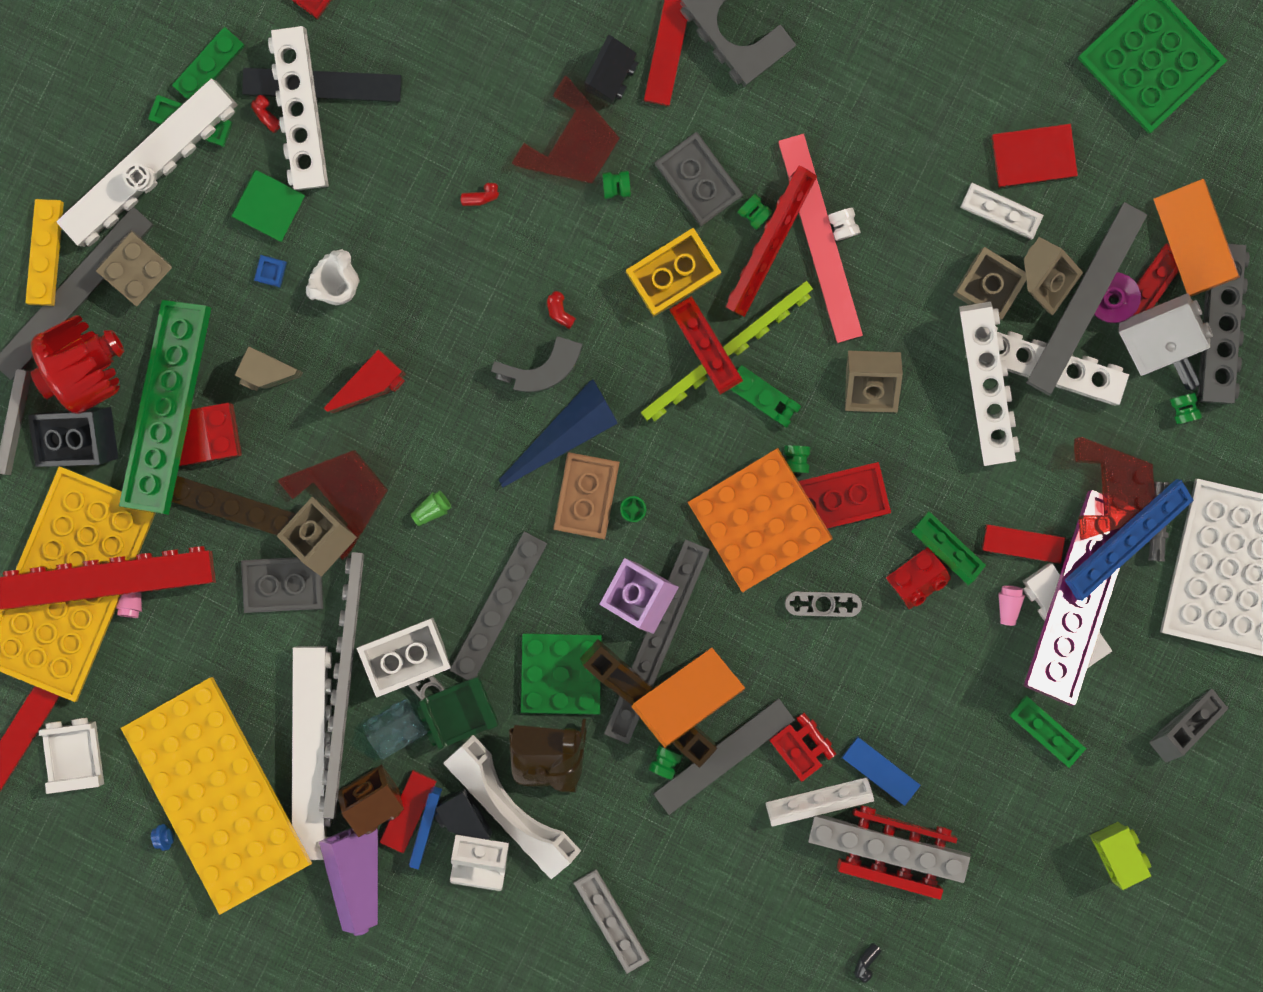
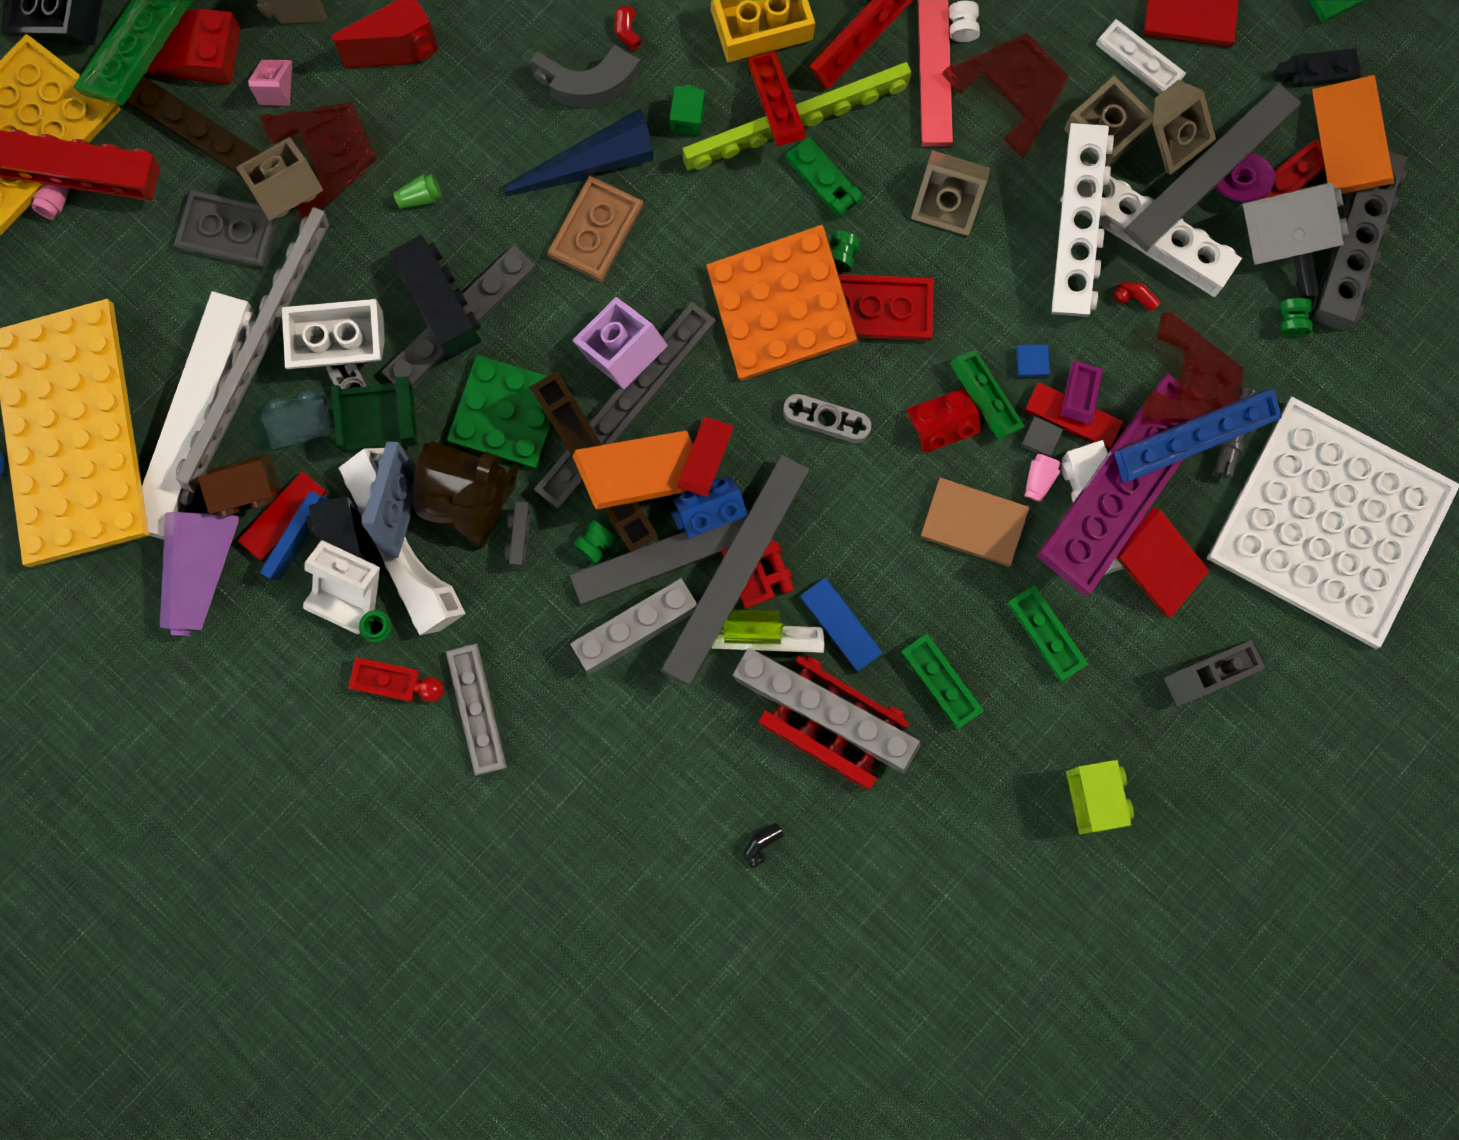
camera: 10 degrees right, 10 degrees down
(277, 444) = (272, 82): none -> bright pink slope
(476, 599) = (436, 297): none -> black brick
(497, 782) = (390, 500): none -> sand blue plate
(514, 890) = (371, 621): none -> green cone
(540, 919) = (393, 681): none -> red plate
(600, 764) = (517, 548): none -> dark grey plate
(633, 371) = (687, 110): none -> green brick
(633, 509) = (643, 246): green wheel -> none
(718, 822) = (634, 626): none -> light grey brick
(735, 669) = (705, 456): none -> red tile
(749, 709) = (702, 513): none -> blue brick
(786, 755) = (735, 571): none -> dark grey tile
(811, 796) = (753, 627): none -> clear neon green piece
(908, 260) = (1023, 76): none -> clear red wing
(965, 656) = (974, 522): none -> medium nougat tile
(973, 794) = (941, 681): none -> green plate
(978, 506) = (1032, 361): none -> blue tile
(1001, 569) = (1041, 437): none -> dark grey tile
(1025, 523) = (1081, 392): none -> magenta tile
(1050, 422) = (1137, 291): none -> red arm
(1125, 652) = (1162, 562): none -> red tile
(1156, 176) = (1320, 68): none -> black hinge

